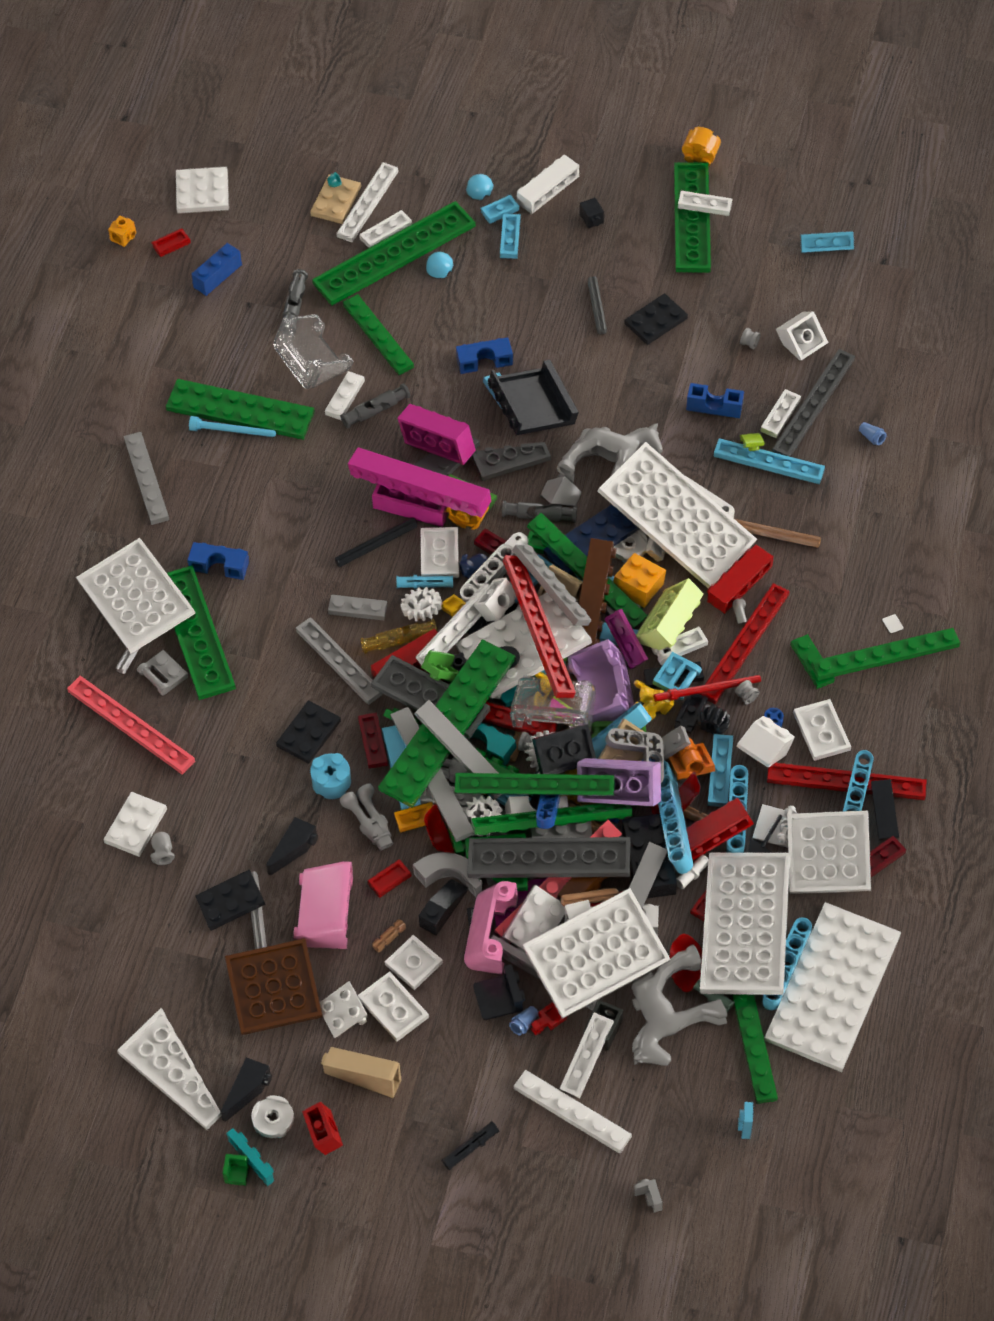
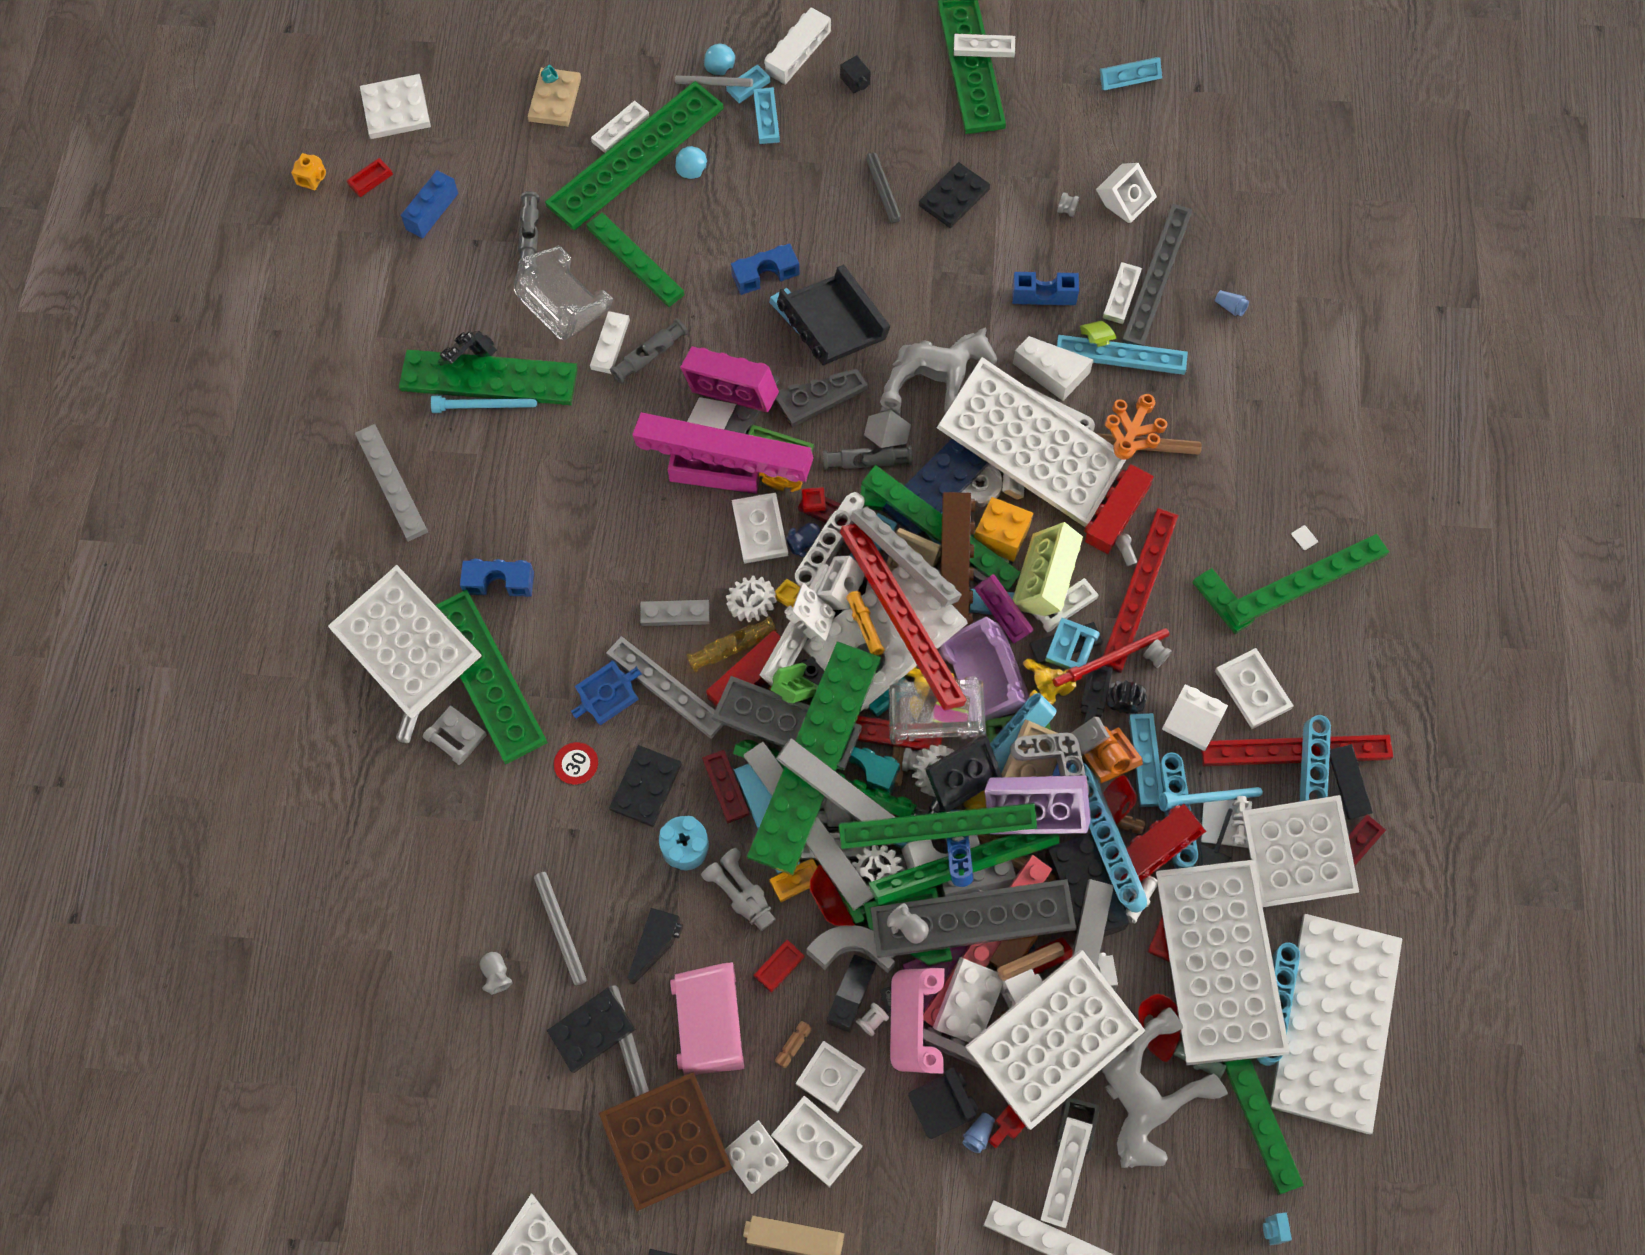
camera: 10 degrees left, 10 degrees up
(131, 725) = (428, 812): coral plate -> none
(135, 824) = (456, 943): white plate -> none
(220, 826) = (560, 928): none -> light grey axle
(235, 378) = (475, 341): none -> black bracket
(255, 708) = (576, 763): none -> sticker
(290, 657) = (606, 692): none -> blue plate
(367, 202) = (592, 96): white tile -> none
(376, 542) = (681, 525): black axle -> none
(419, 458) = (711, 413): none -> white sticker
(424, 581) = (775, 564): medium azure pin -> none
(455, 926) = (872, 1019): none -> white bush
(467, 616) = (811, 614): none -> white hinge
(472, 203) = (718, 81): none -> light grey bar
(487, 536) = (813, 499): none -> red tile
(498, 852) = (910, 924): none -> light grey animal
(507, 625) = (862, 616): none -> light orange pin
(708, 462) = (1052, 366): none -> white wedge
(728, 795) = (1169, 800): none -> medium azure piece
(755, 531) = (1125, 447): none -> orange plant
(775, 714) = (1197, 679): blue wheel -> none

